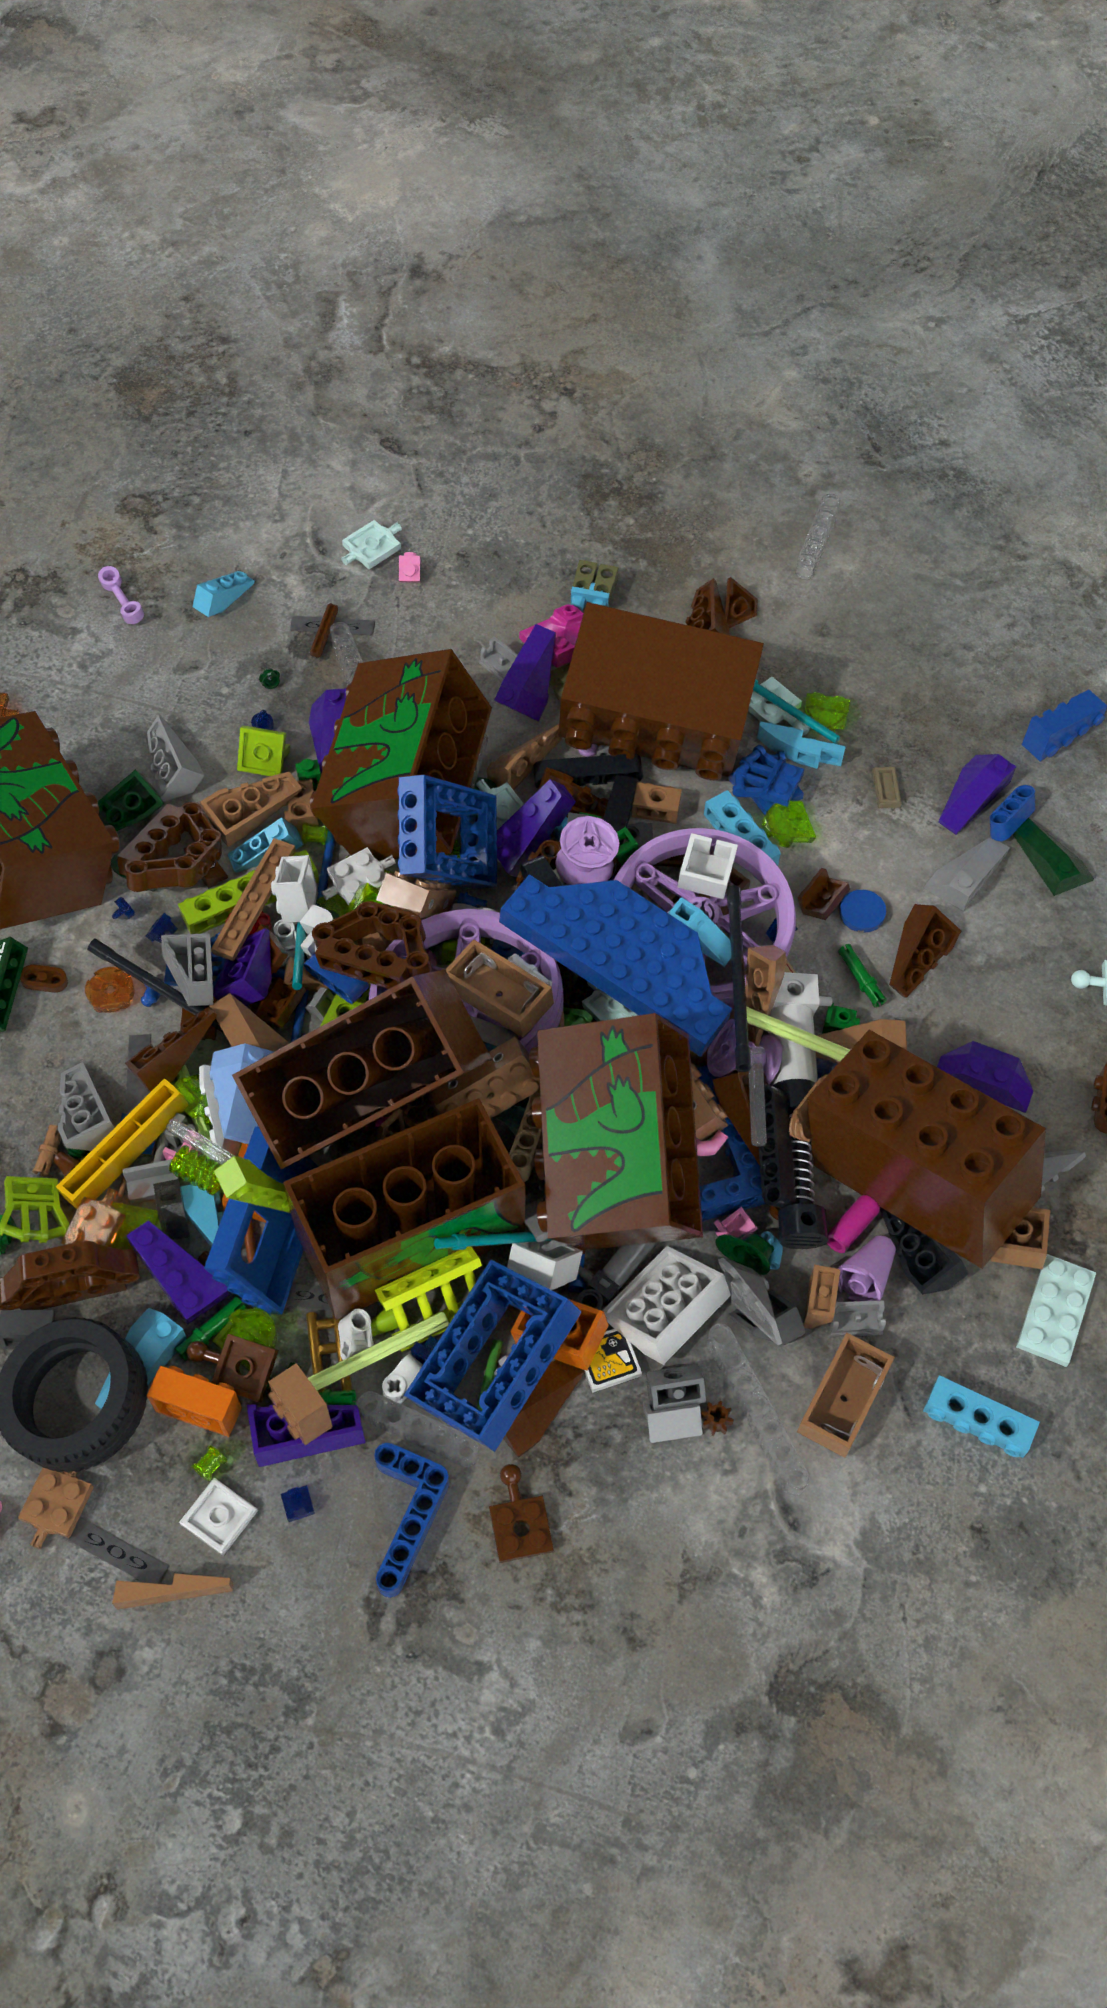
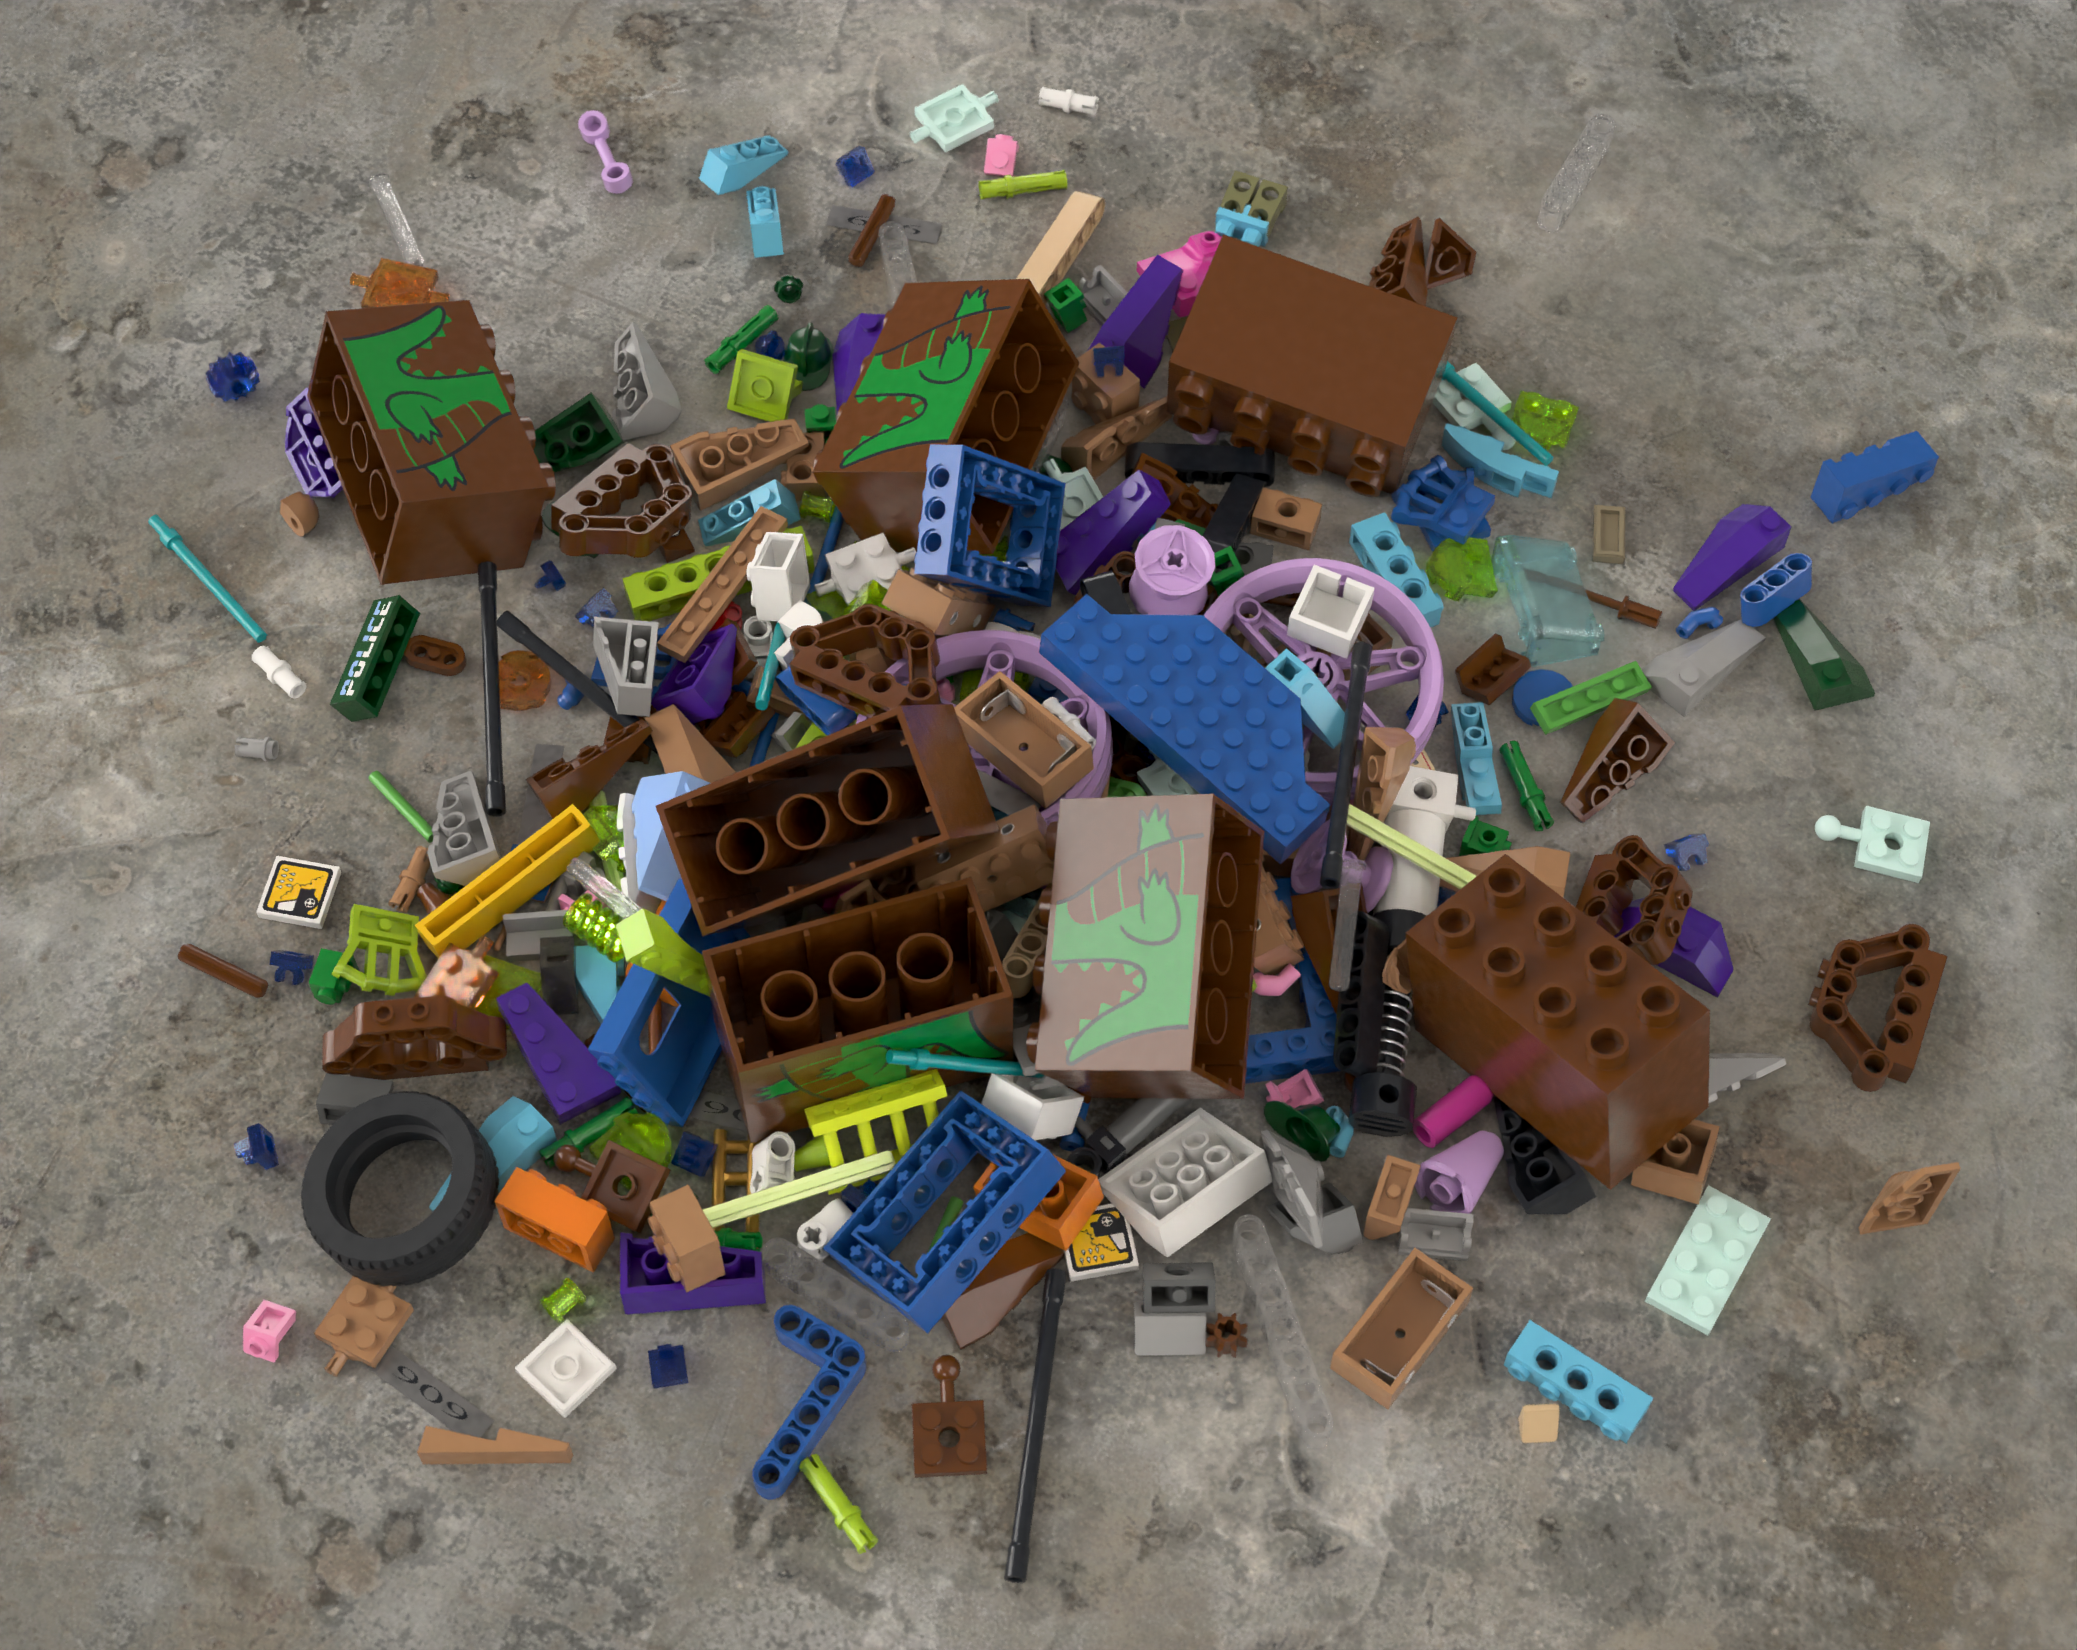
camera: 10 degrees right, 0 degrees up
(33, 1095) = (402, 805): none -> bright green bar
(103, 1073) = (493, 738): none -> black piece
(242, 716) = (741, 339): none -> green pin
(245, 632) = (764, 222): none -> medium azure slope
(293, 1334) = (694, 1154): none -> clear blue tile
(294, 723) = (812, 354): none -> dark green piece
(305, 586) = (855, 166): none -> clear blue tile
(419, 588) = (1017, 185): none -> lime pin
(444, 1593) = (846, 1515): none -> lime pin
(451, 524) = (1068, 101): none -> white pin
(465, 621) = (1063, 242): none -> tan beam
(476, 666) = (1067, 305): none -> green brick
(511, 722) = (1104, 396): none -> medium nougat brick
(513, 700) = (1108, 356): none -> clear blue tile
(588, 1612) = (1019, 1548): none -> black piece
(821, 959) = (1474, 758): none -> medium azure slope
(853, 838) = (1547, 598): none -> clear light blue windscreen
(896, 906) = (1590, 697): none -> bright green plate
(910, 839) = (1628, 609): none -> reddish brown piece
(958, 1452) = (1539, 1423): none -> tan slope
(966, 837) = (1698, 617): none -> blue arm
(982, 1055) = (1609, 892): none -> reddish brown brick
(986, 1004) = (1686, 846): none -> clear blue tile

